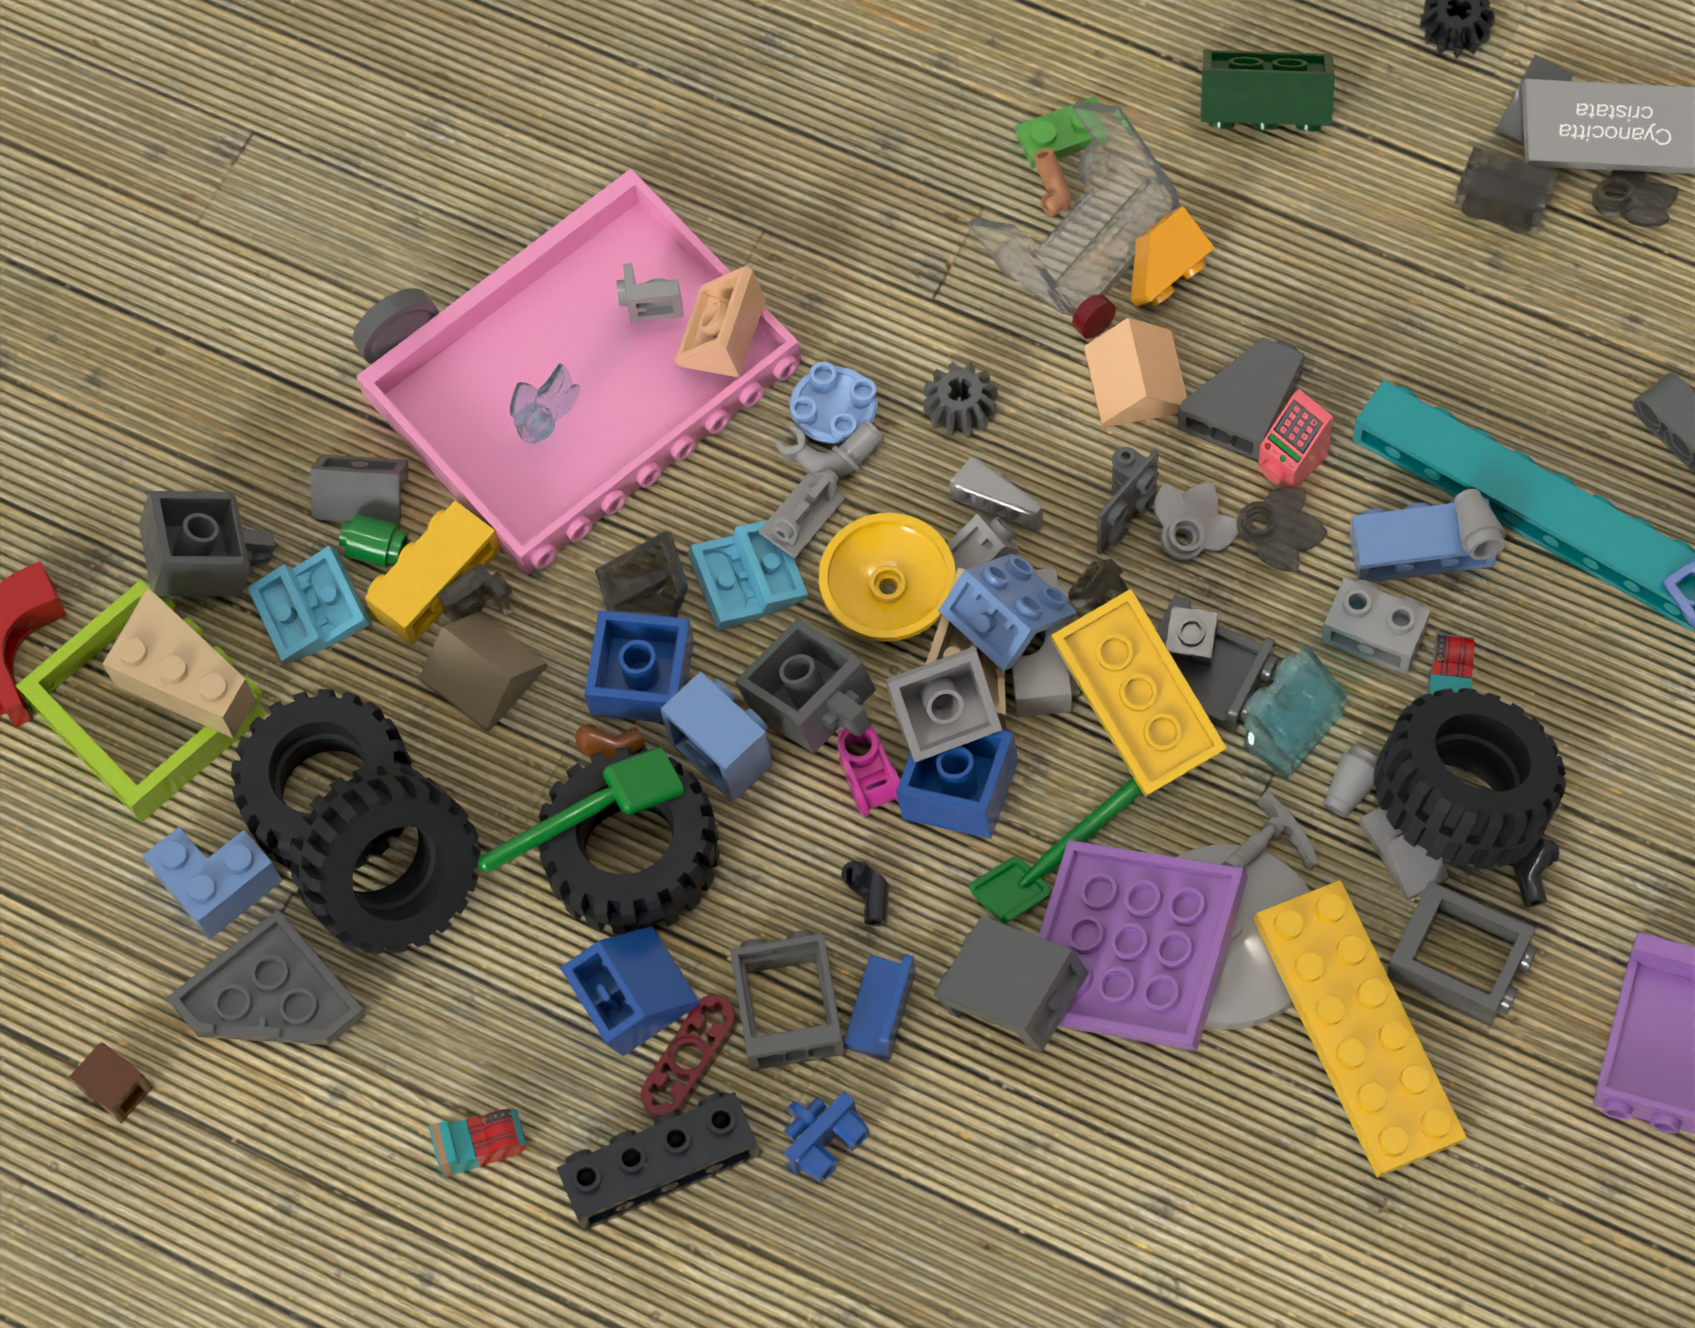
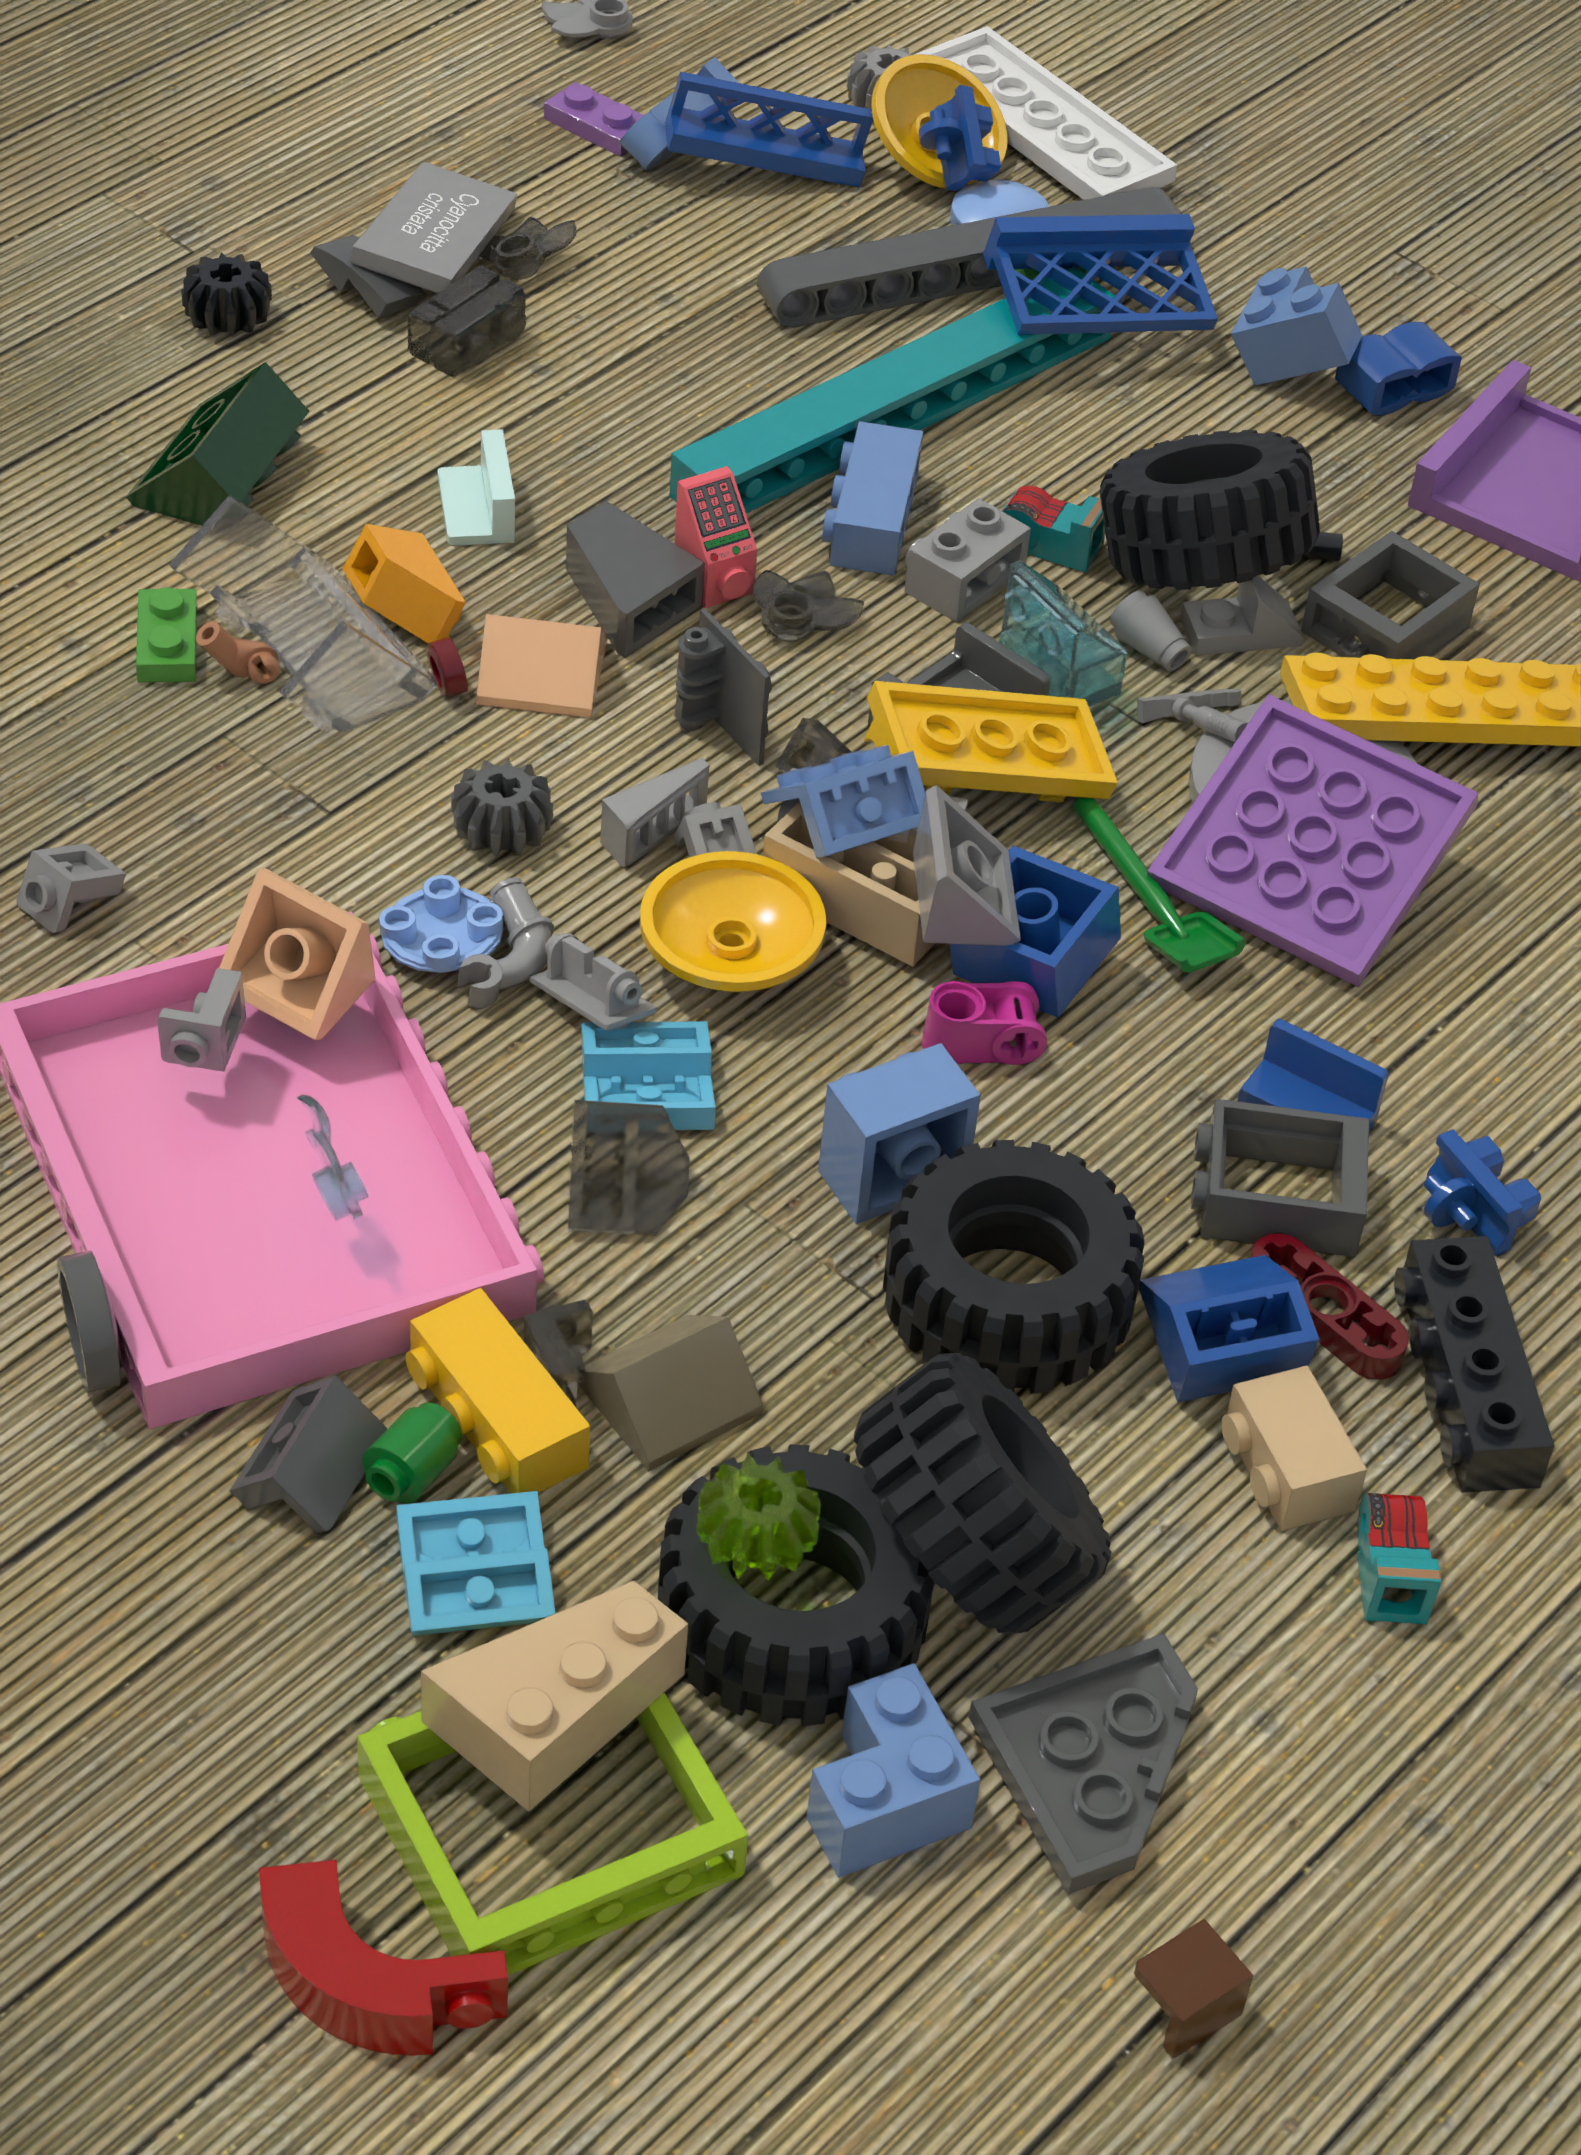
camera: 85 degrees left, 20 degrees down
(198, 544) = (332, 1649): dark grey hinge -> none
(304, 718) = (758, 1516): none -> clear neon green gear
(543, 1057) = (1293, 1448): none -> tan brick
(593, 740) = (841, 1280): dark orange arm -> none
(632, 782) = (974, 1182): green piece -> none
(637, 664) = (755, 1193): blue brick -> none
(786, 170) = (66, 876): none -> light grey bracket
(808, 687) = (862, 1012): dark grey hinge -> none
(871, 888) = (1146, 1068): black arm -> none
(1012, 981) = (1329, 948): dark grey panel -> none
(1193, 634) = (938, 665): bracket -> none
(1195, 517) = (786, 668): light grey plate -> none
(1305, 272) = (479, 498): none -> light aqua panel
(1478, 526) = (899, 422): light grey cone -> none

